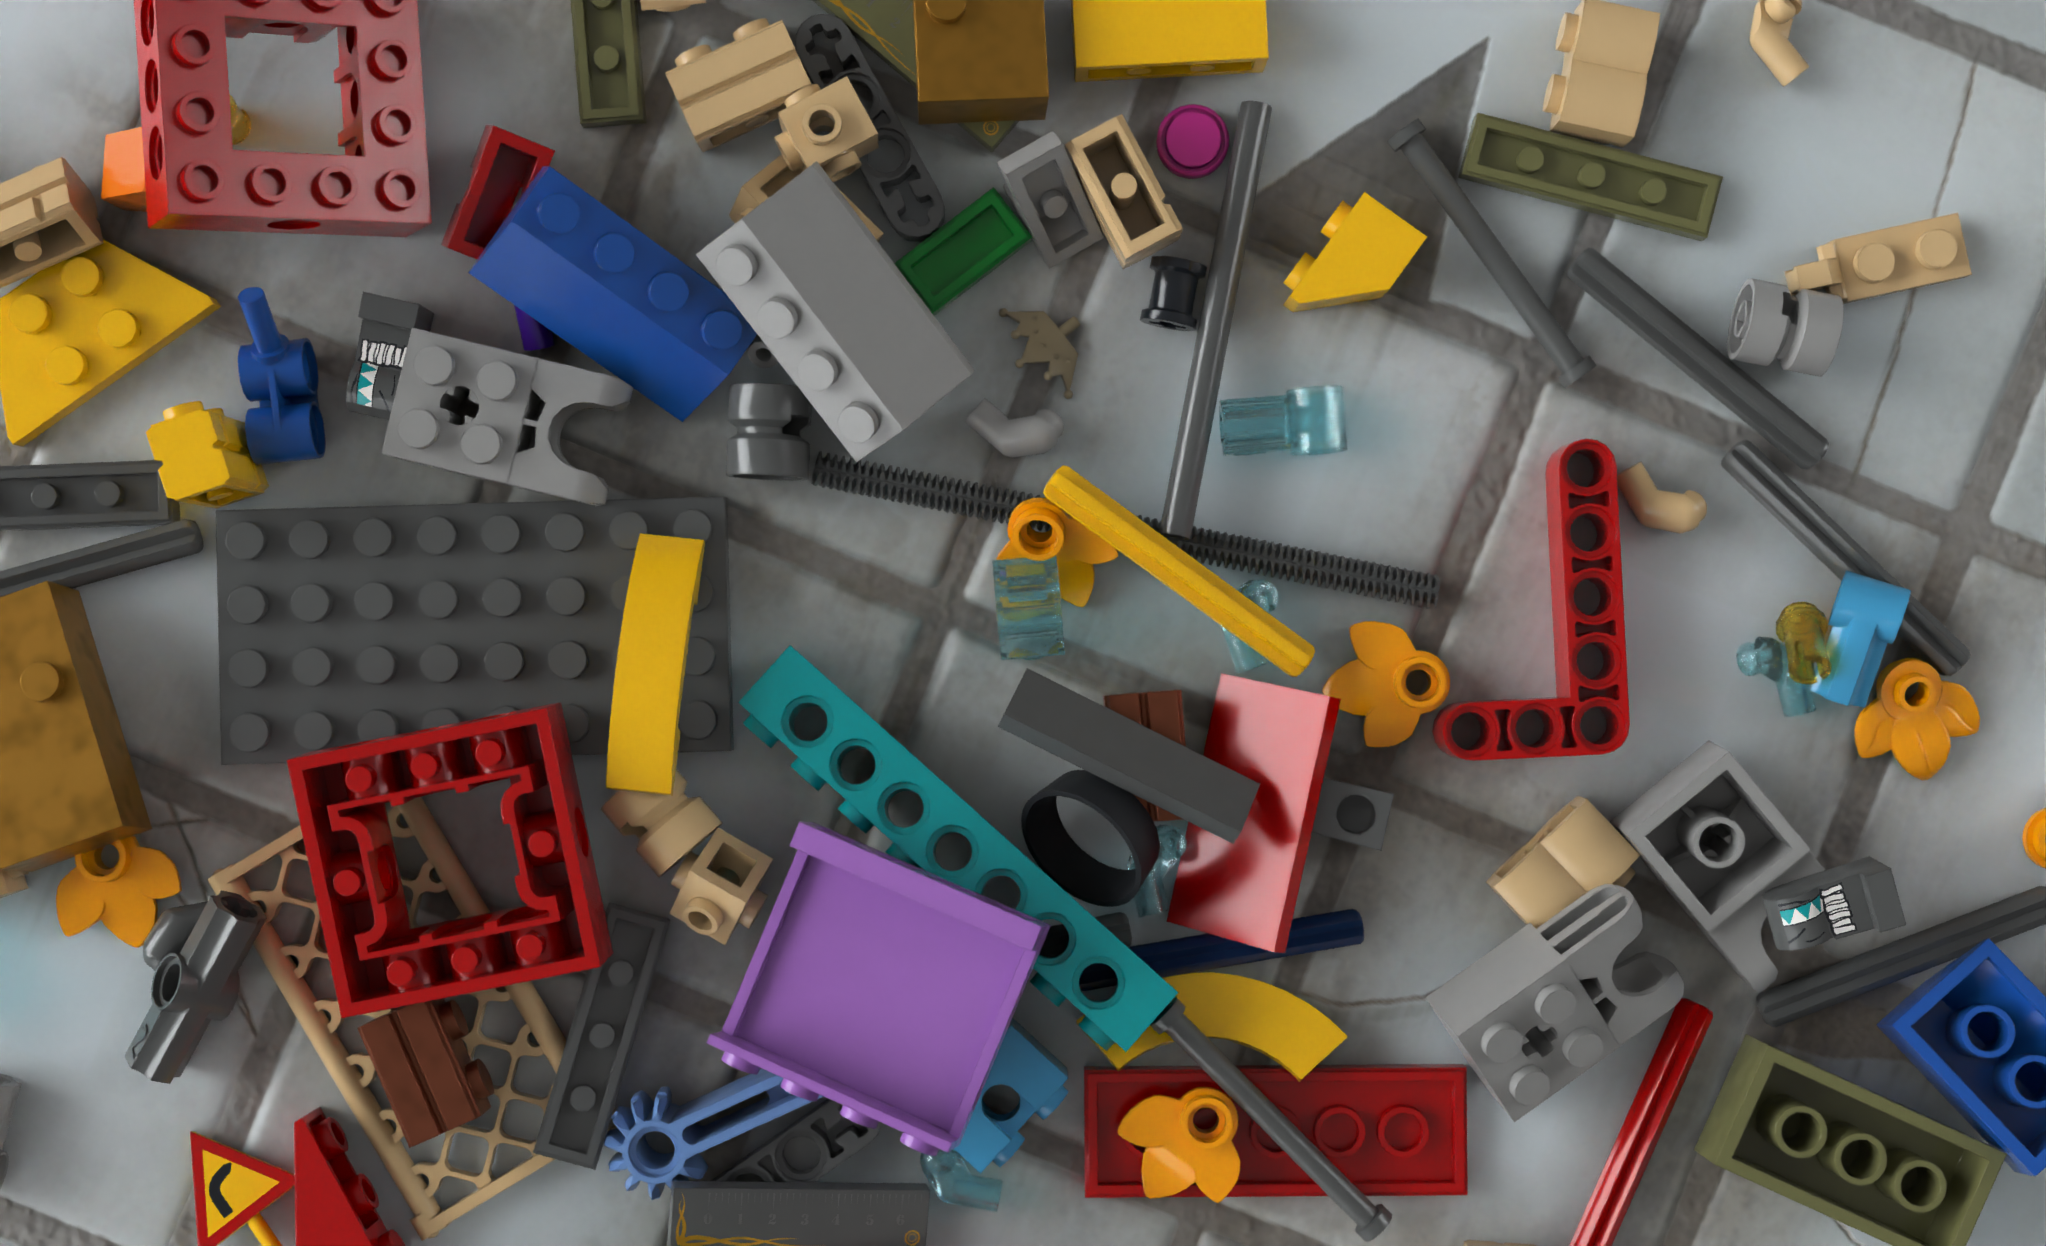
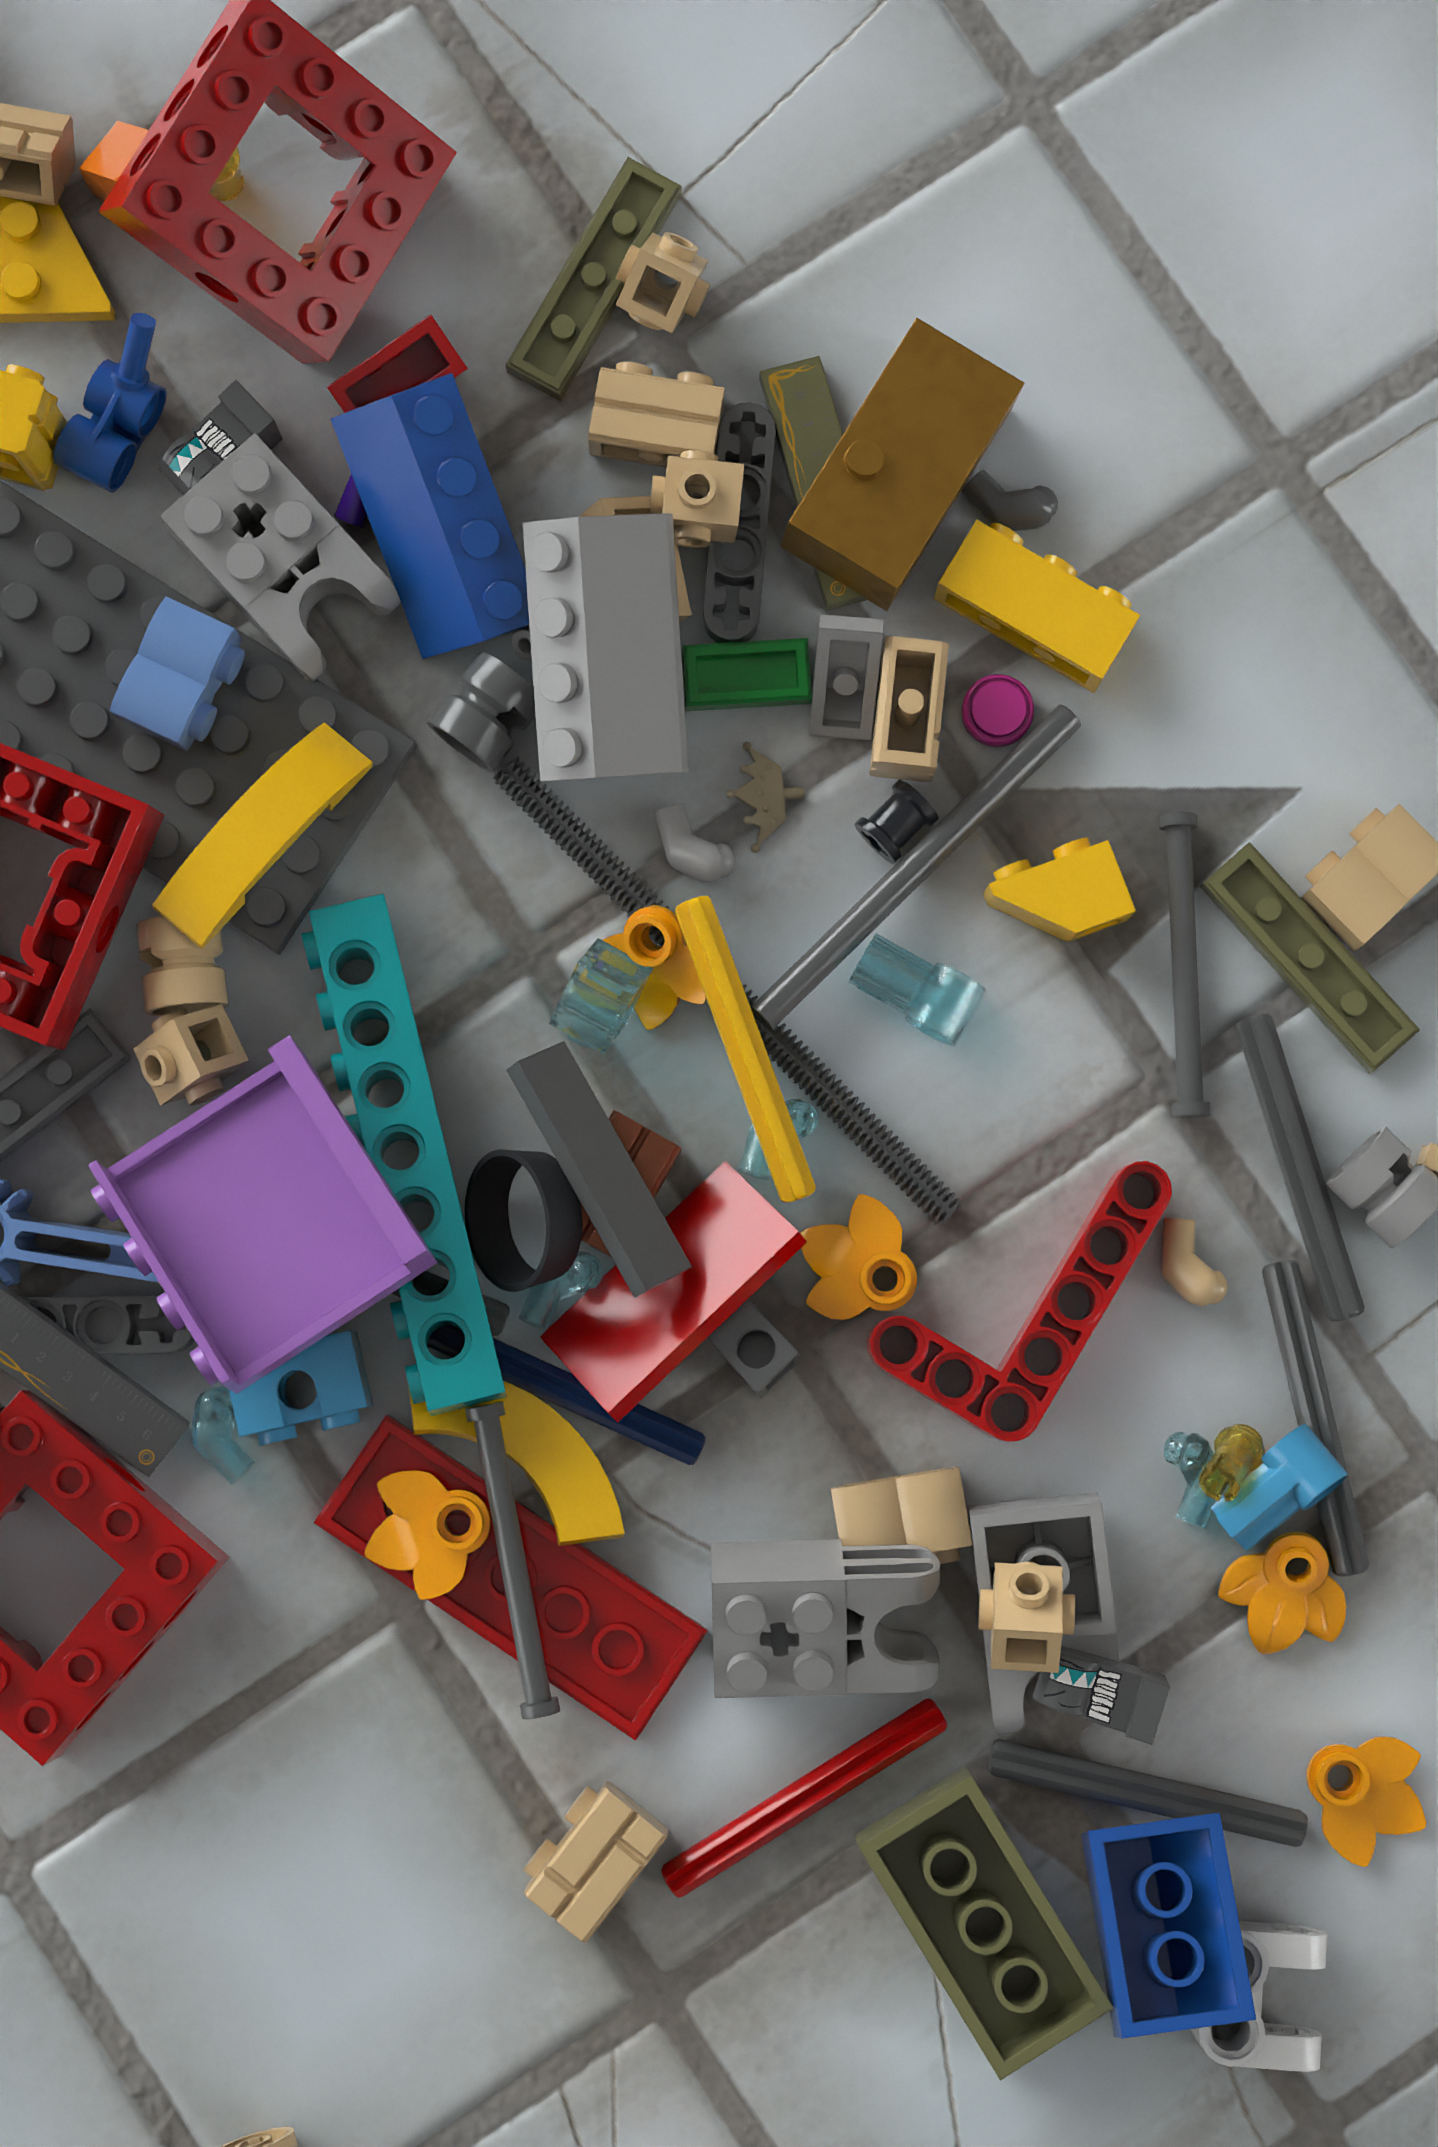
camera: 35 degrees right, 5 degrees down
(490, 576) = (177, 674): none -> medium blue brick
(1734, 889) = (1026, 1616): none -> tan brick

